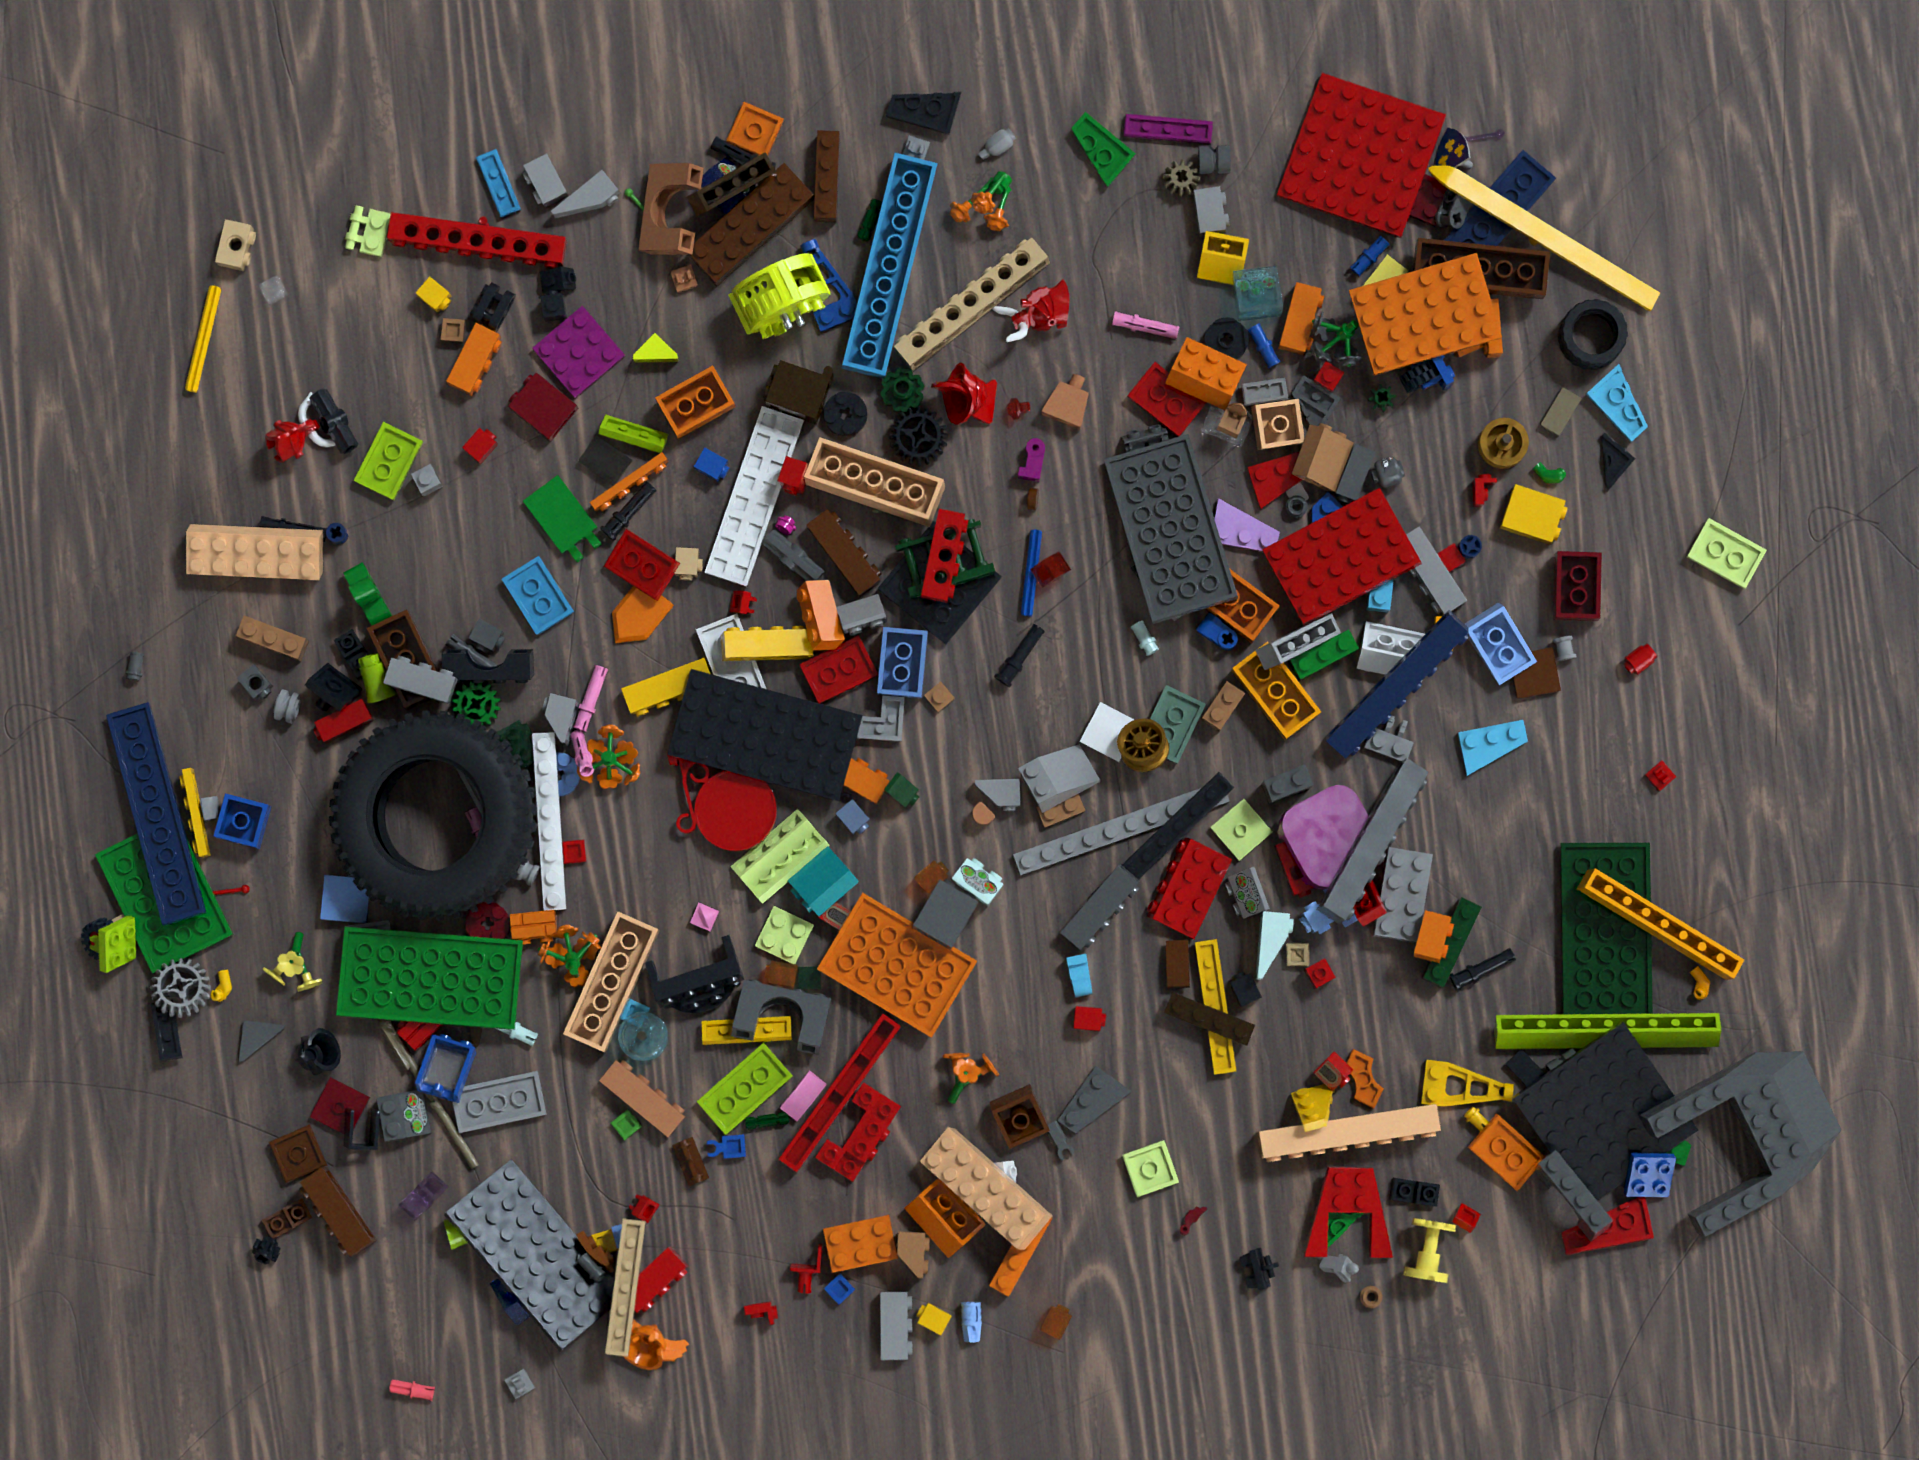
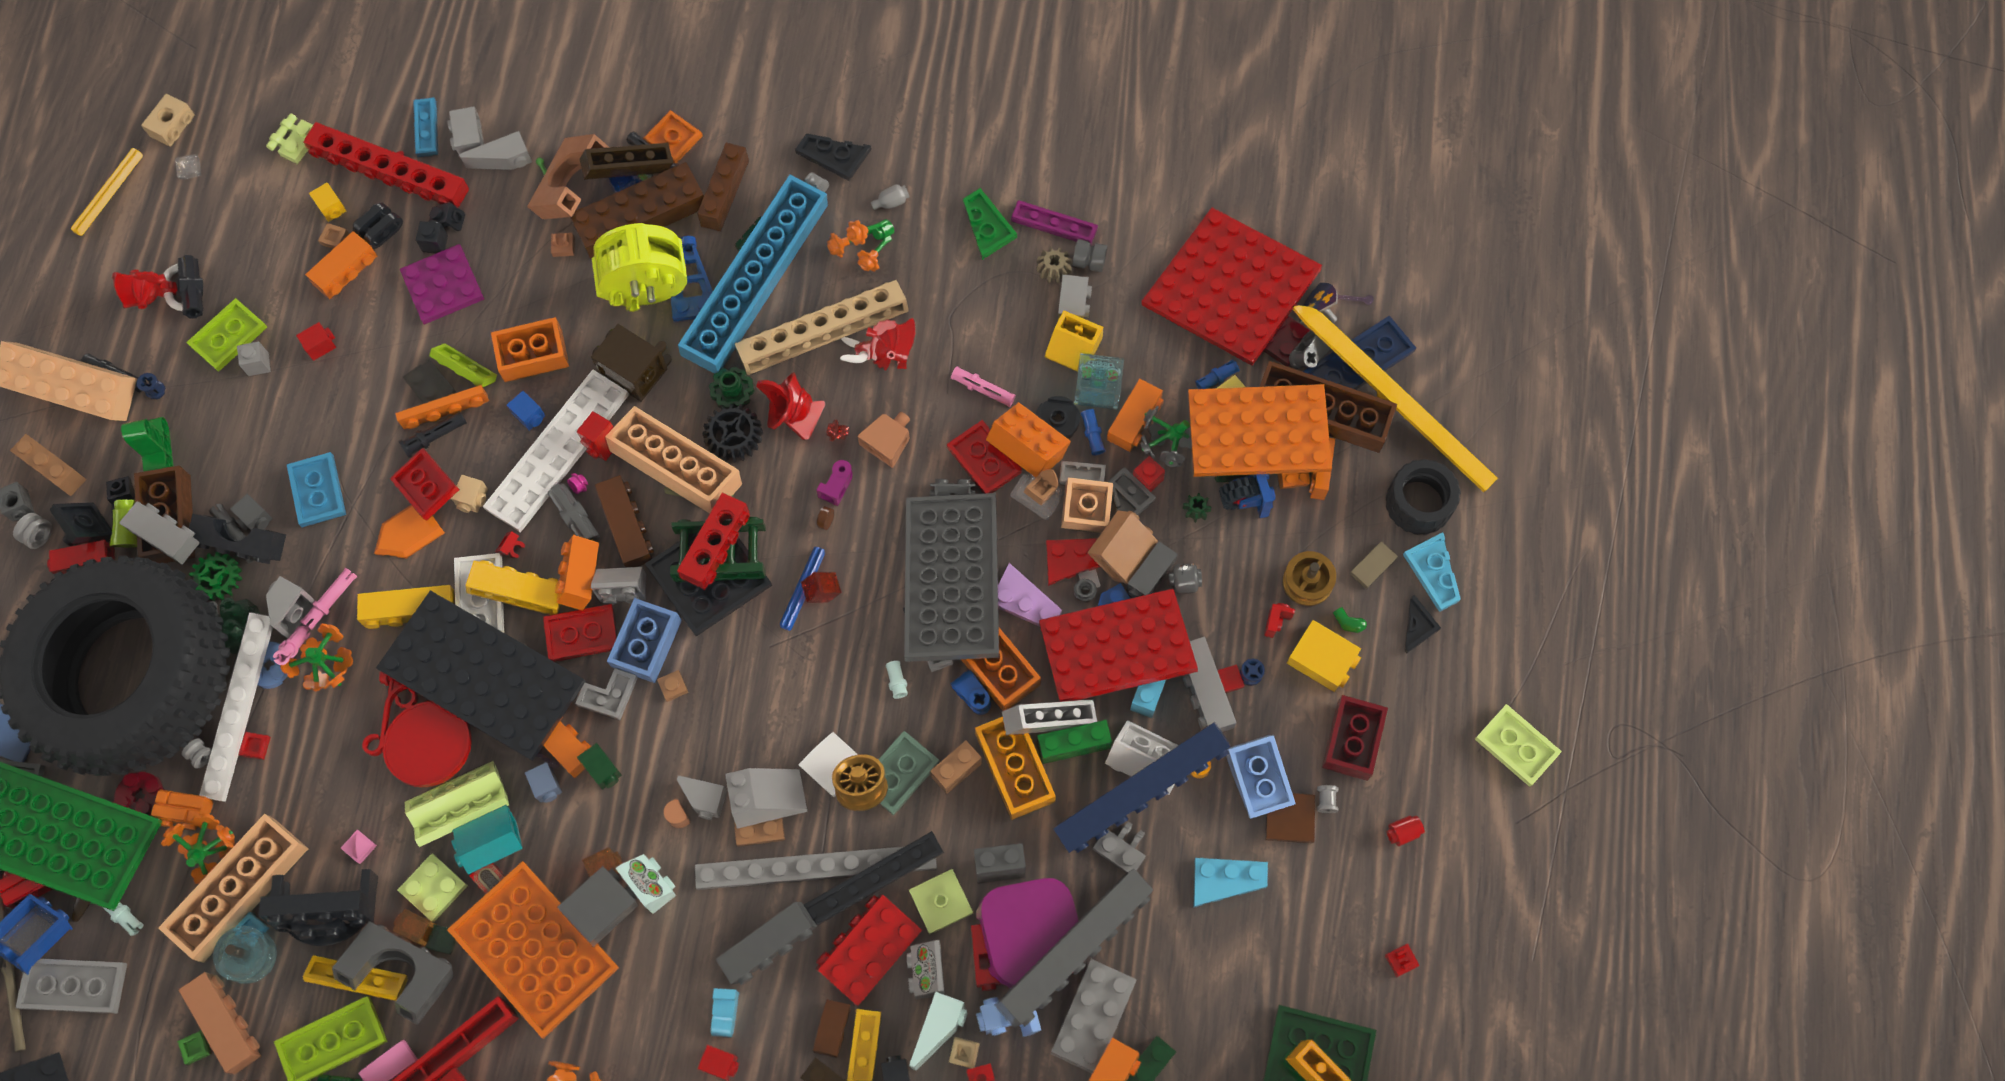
camera: 15 degrees right, 15 degrees down
(542, 406) = (388, 321): dark red brick -> none
(562, 517) = (369, 425): green tile -> none
(655, 351) = (509, 298): neon yellow slope -> none
(842, 401) = (670, 409): black plate -> none
(1014, 664) = (757, 671): black pin -> none
(1370, 906) = (1053, 1016): red piece -> none

